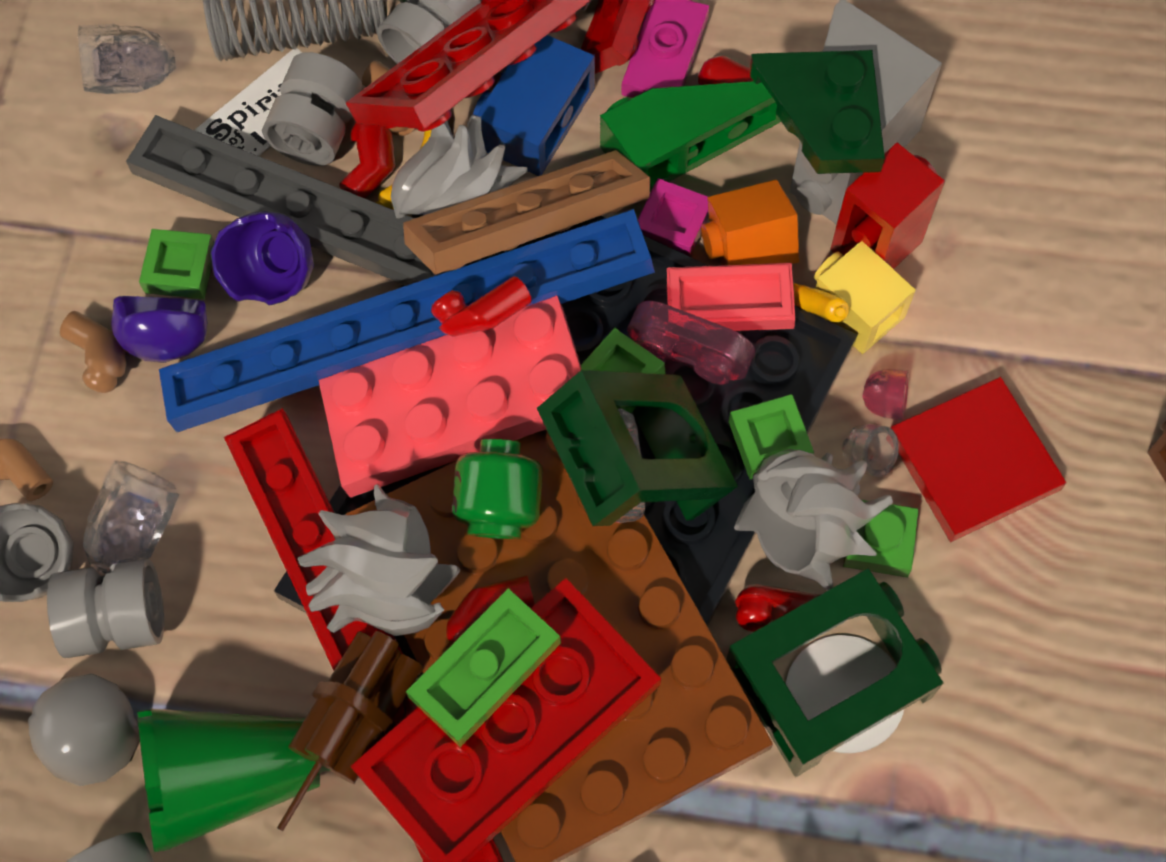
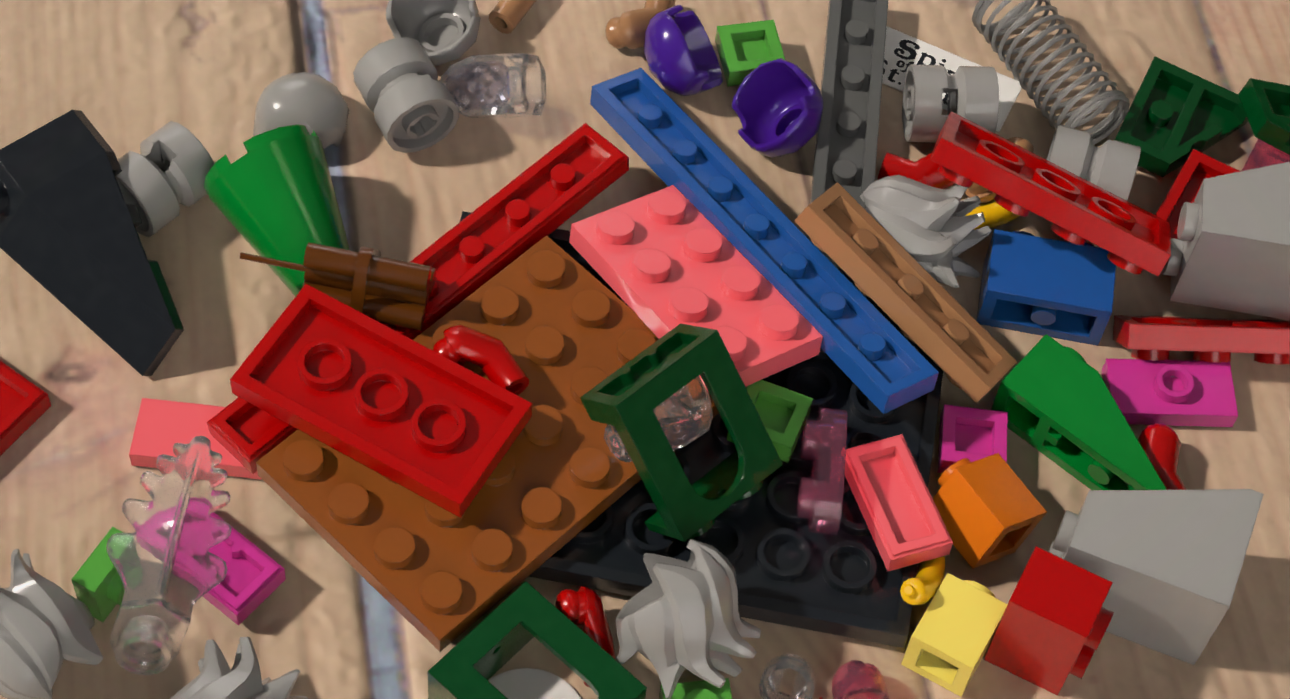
camera: 65 degrees right, 10 degrees down
(379, 569) = (490, 253): light grey hair -> none
(484, 313) = (774, 274): red arm -> none
(484, 667) = (419, 349): bright green plate -> none
(497, 490) = (598, 328): green head -> none
(768, 430) = (761, 566): bright green plate -> none
(827, 105) = (1119, 502): dark green wing -> none

